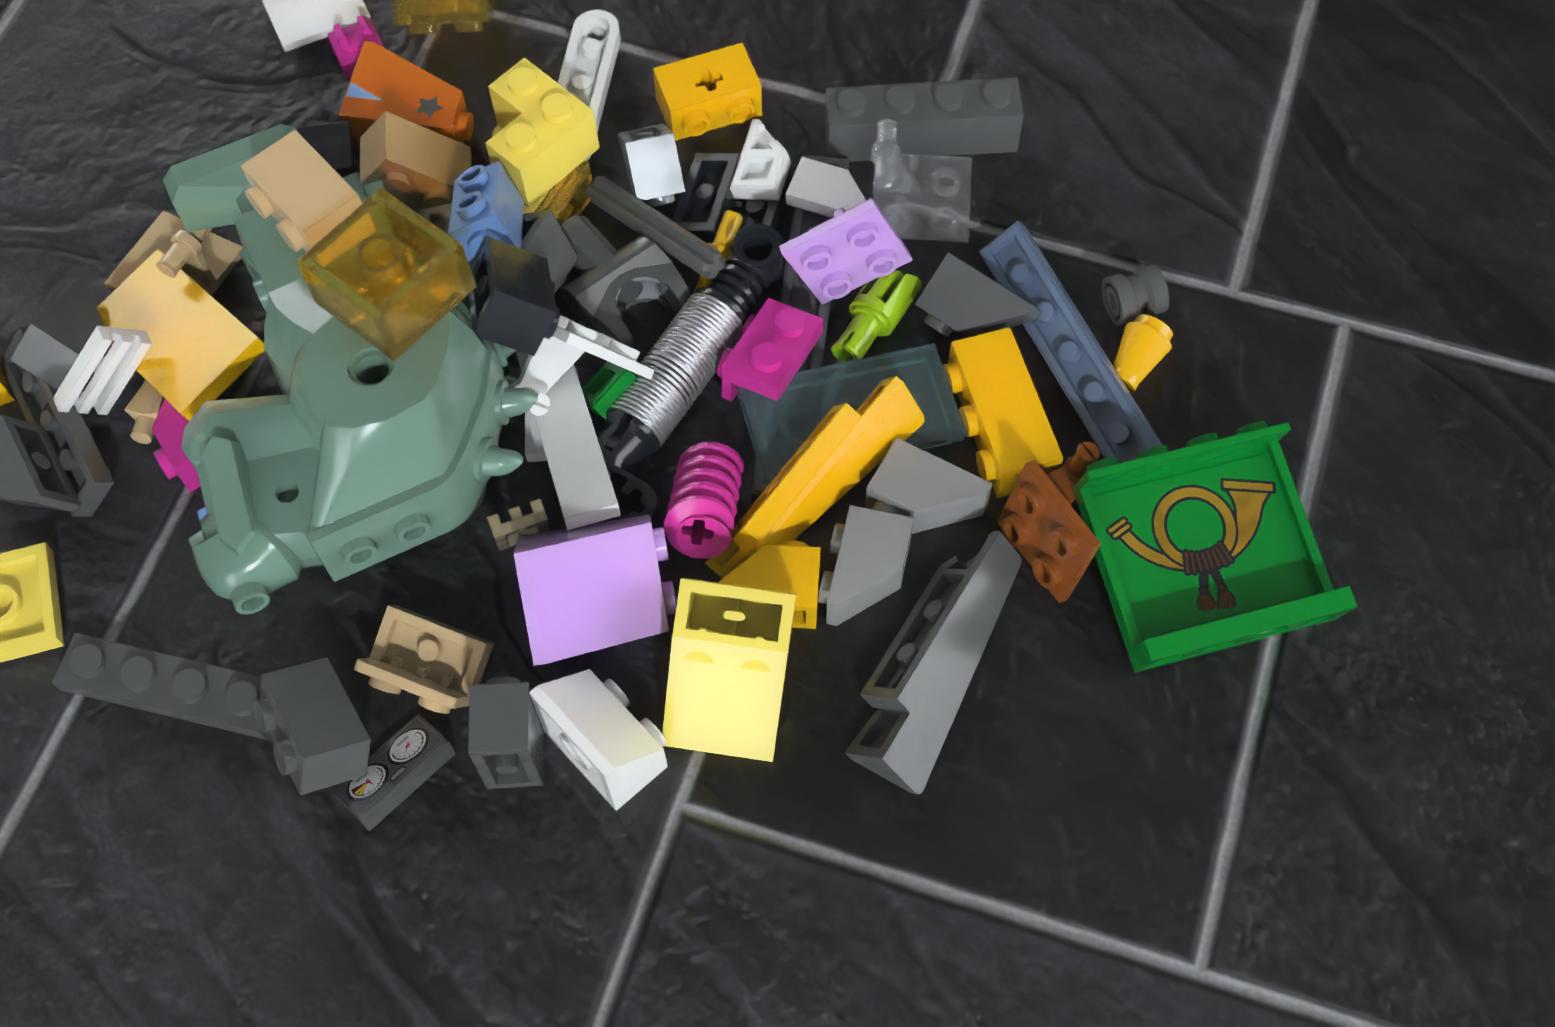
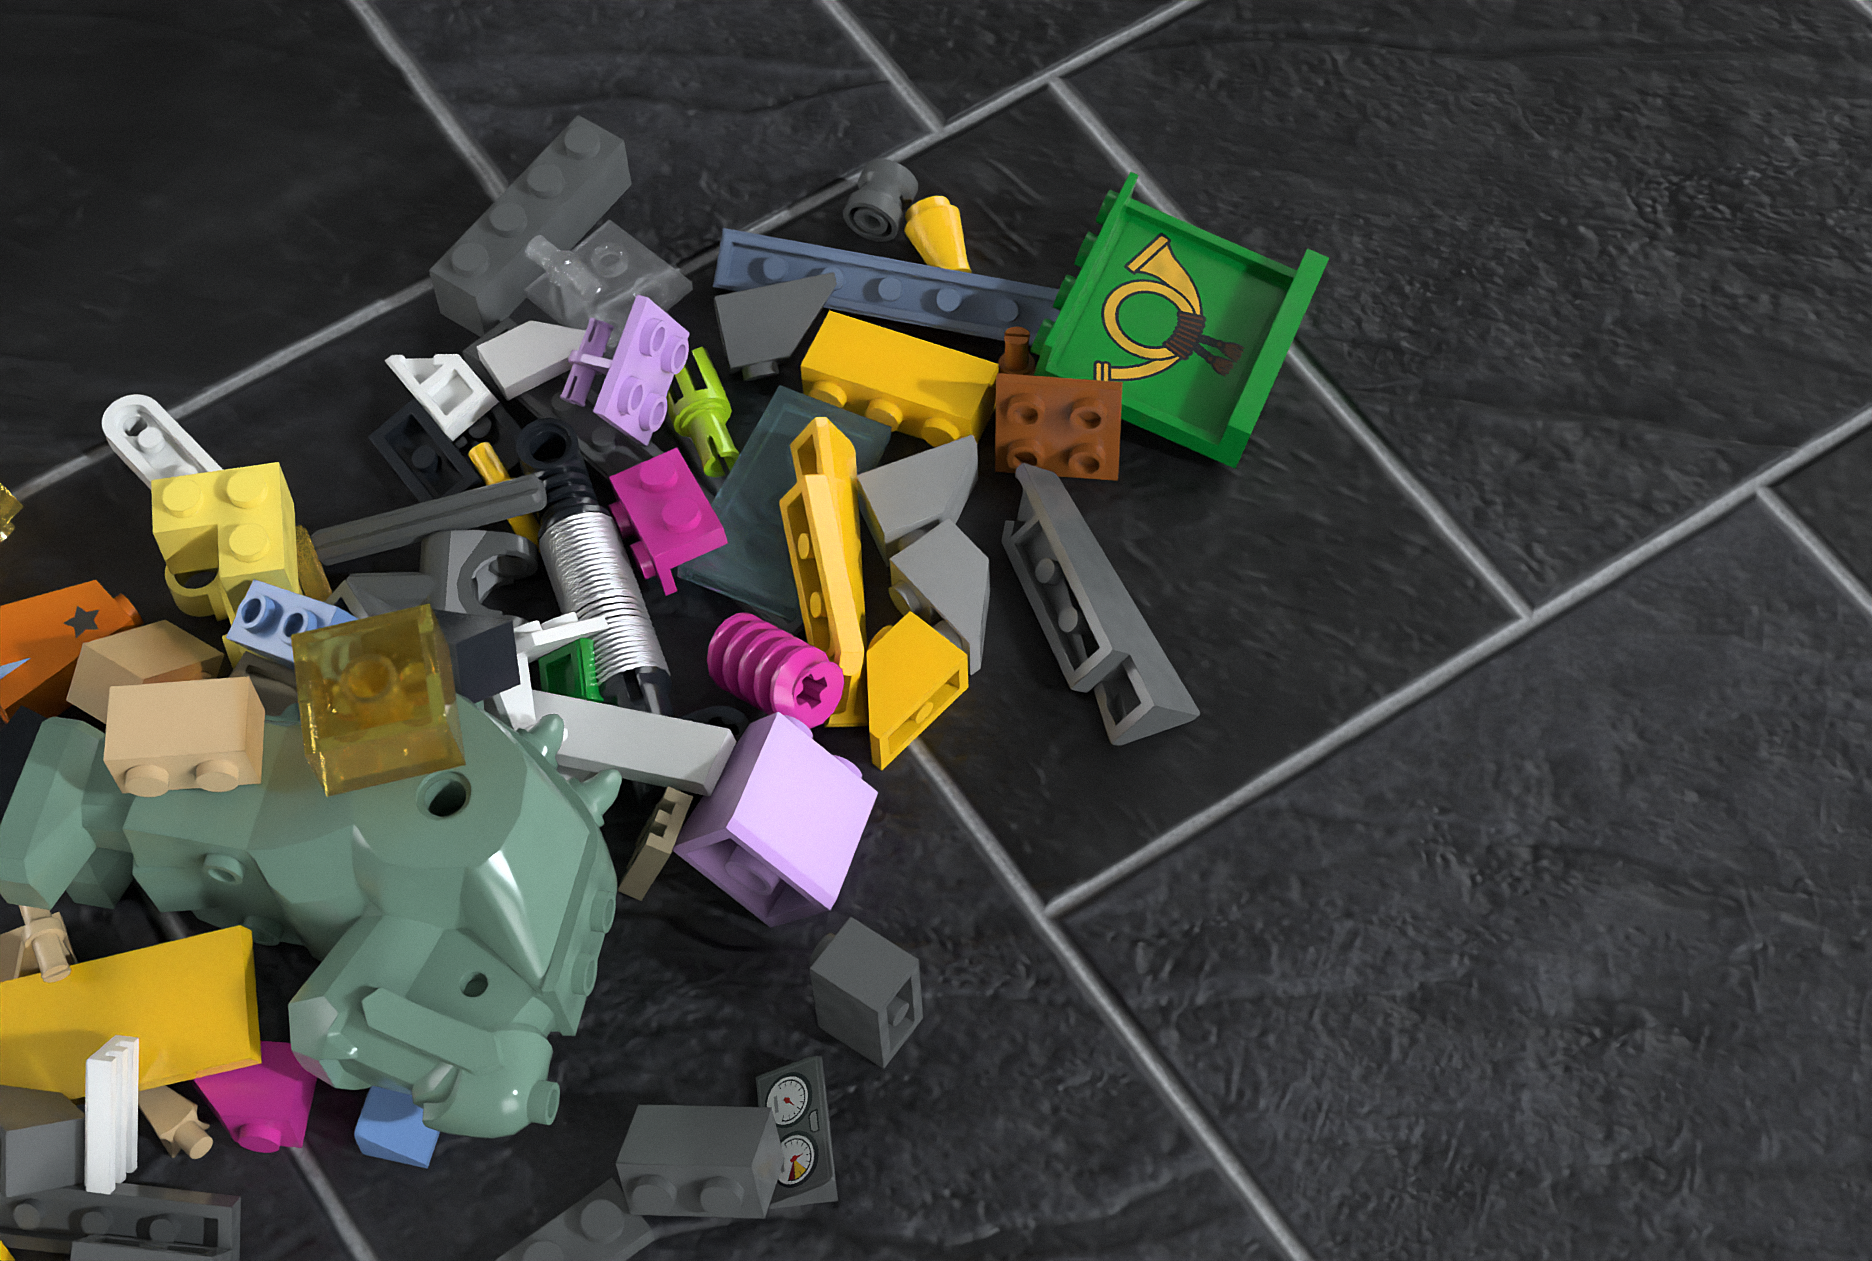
camera: 50 degrees left, 5 degrees down
(425, 660) = (710, 1025): tan bracket -> none
(600, 734) = (938, 918): white slope -> none
(652, 164) = (346, 475): slope -> none
(708, 91) = (312, 377): yellow brick -> none
(727, 668) = (964, 762): light yellow slope -> none

